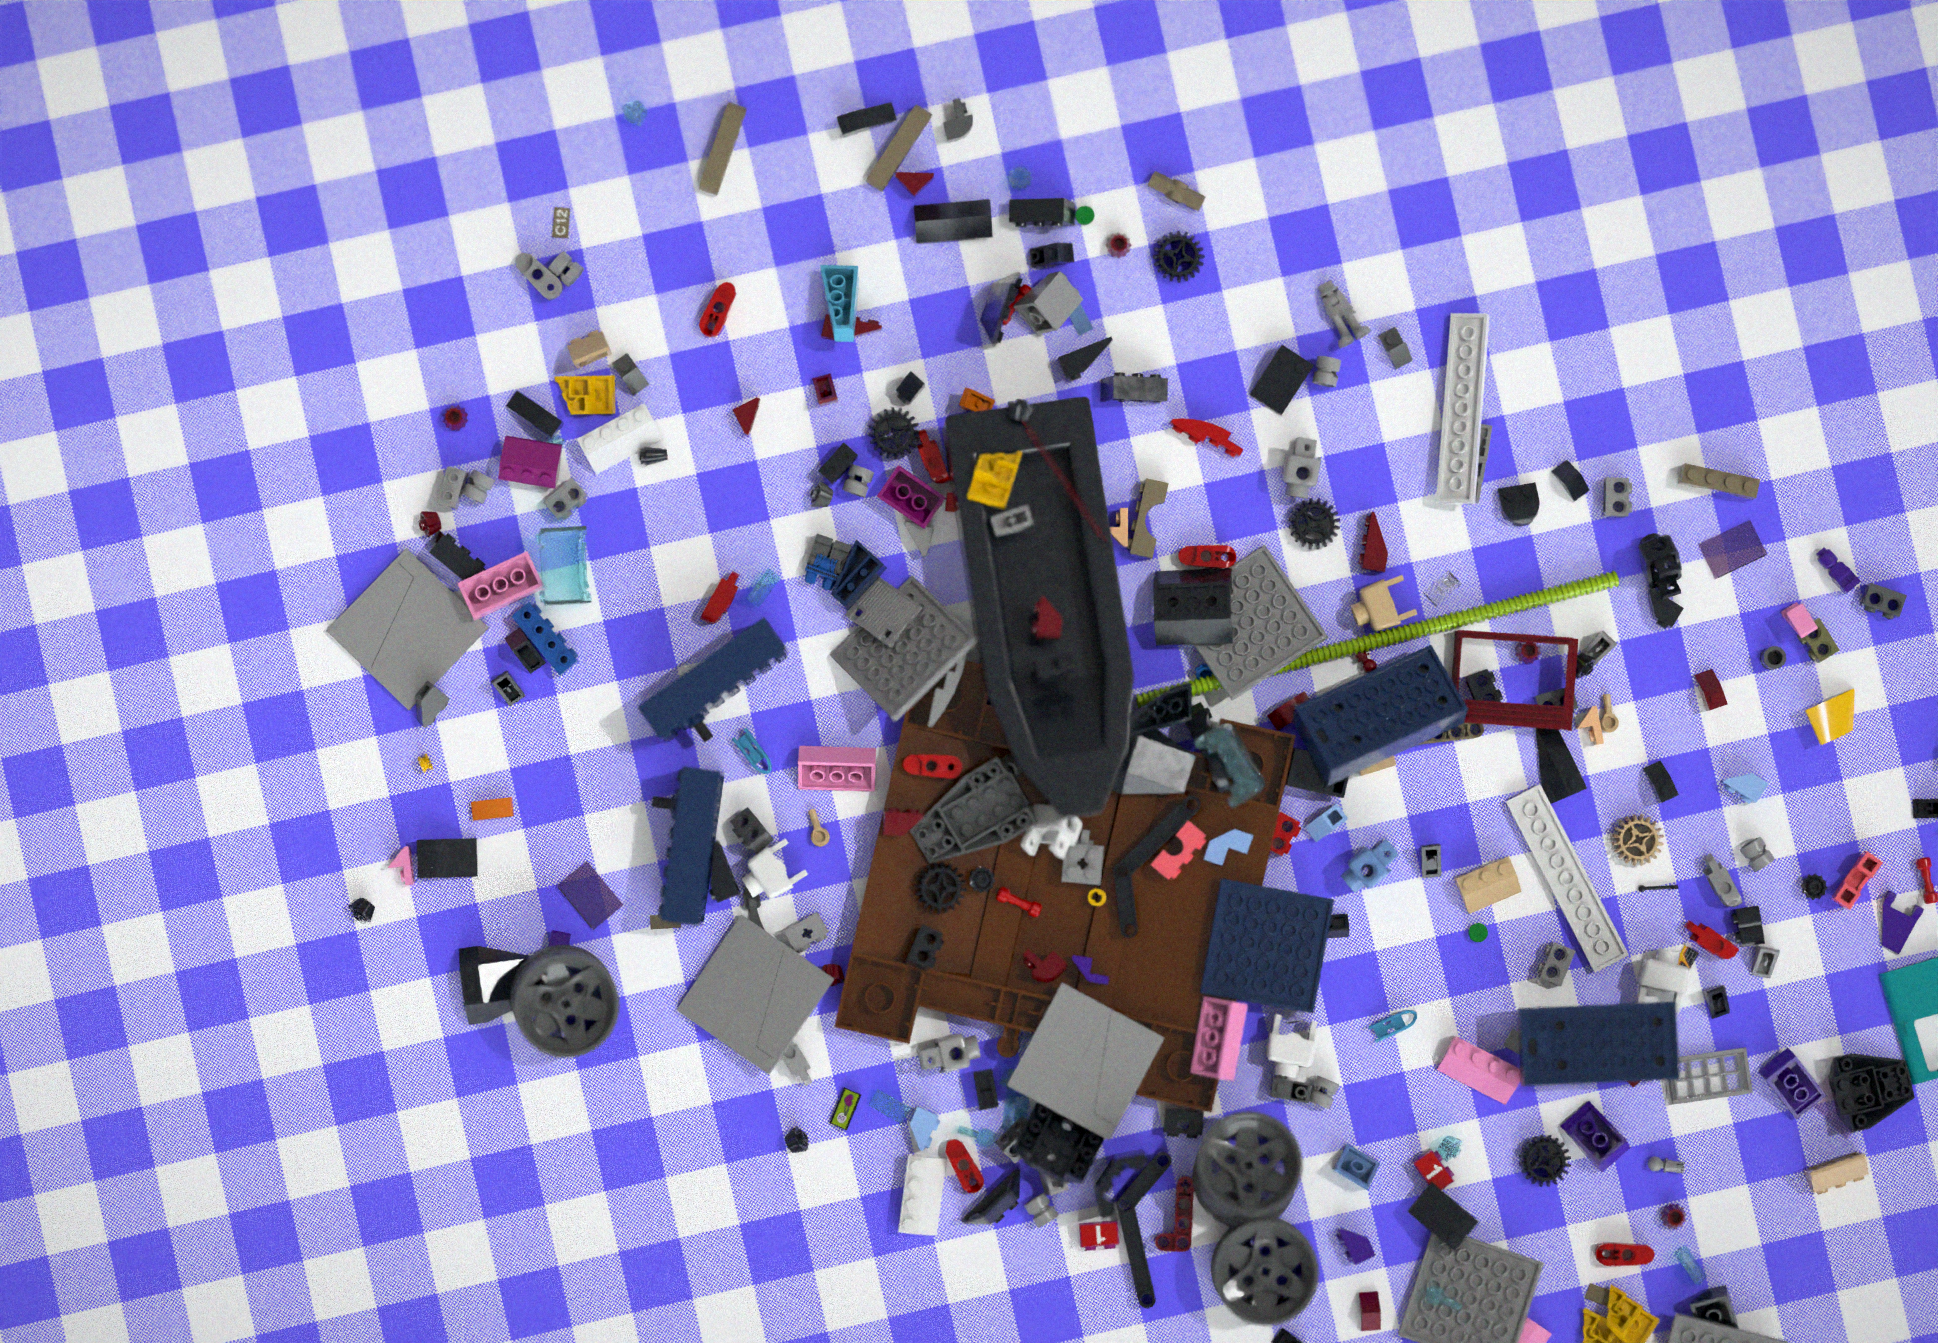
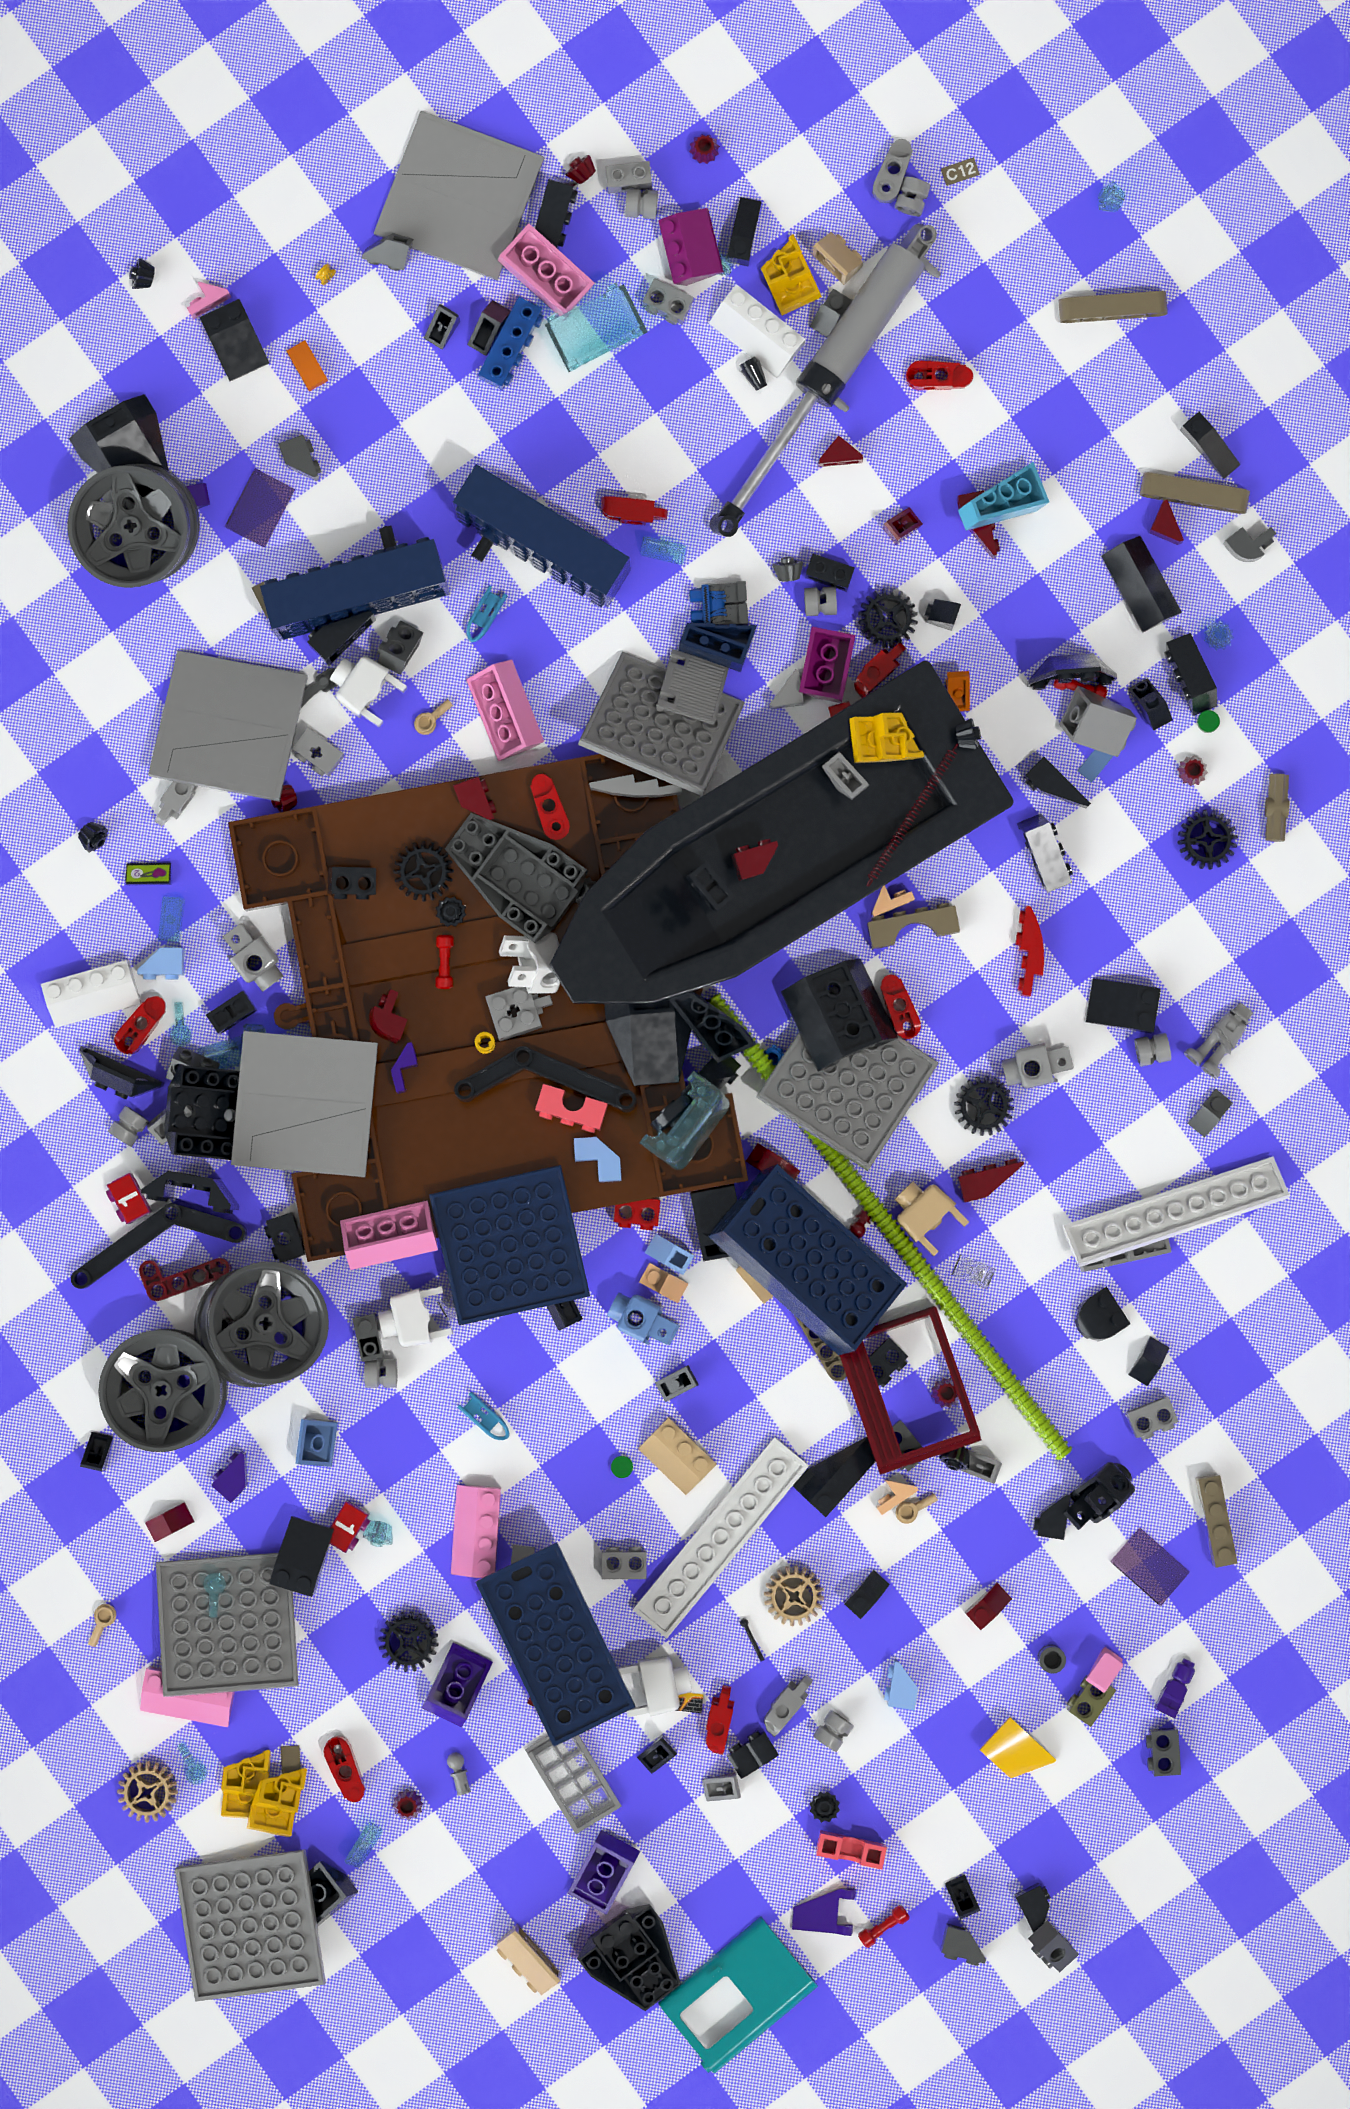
camera: 70 degrees right, 0 degrees up
(562, 846) = (298, 457): none -> dark grey slope
(667, 378) = (842, 352): none -> light grey piece
(1346, 837) = (663, 1283): none -> light nougat slope

